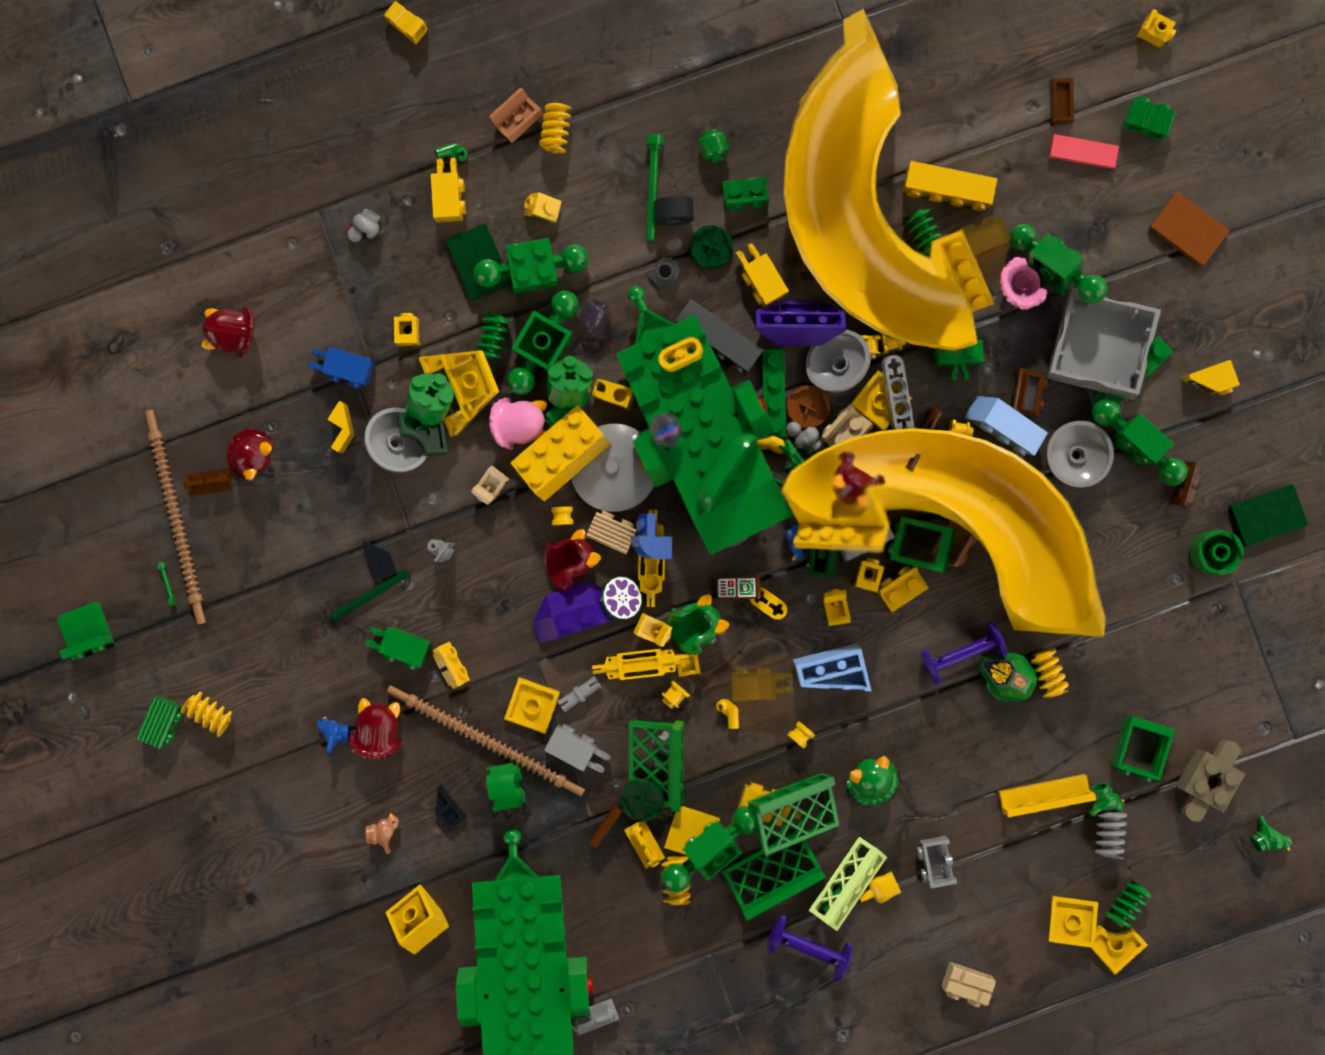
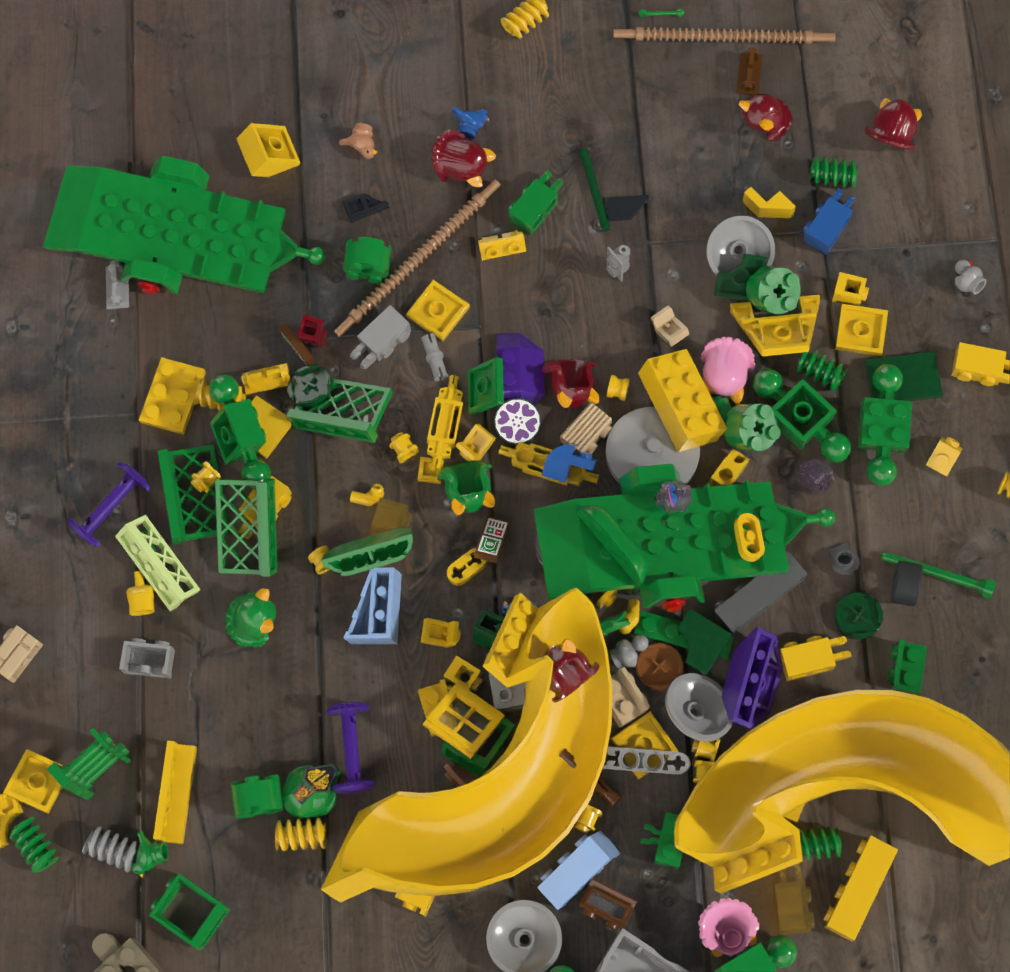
camera: 110 degrees right, 15 degrees down
(291, 375) = (833, 171): none -> green piece
(441, 311) = (861, 330): none -> yellow tile
(592, 814) = (312, 331): none -> dark red leg
(597, 636) = (485, 386): none -> green tile
(686, 926) = (171, 396): none -> yellow plate
(713, 145) = (967, 646): green head -> none
(759, 867) = (205, 477): none -> yellow brick
(777, 372) = (704, 641): none -> dark green tile
(787, 692) = (369, 552): none -> green brick
(915, 560) = (464, 720): none -> yellow piece
(1031, 721) = (256, 796): none -> green brick
(1065, 881) = (89, 764): none -> green fence

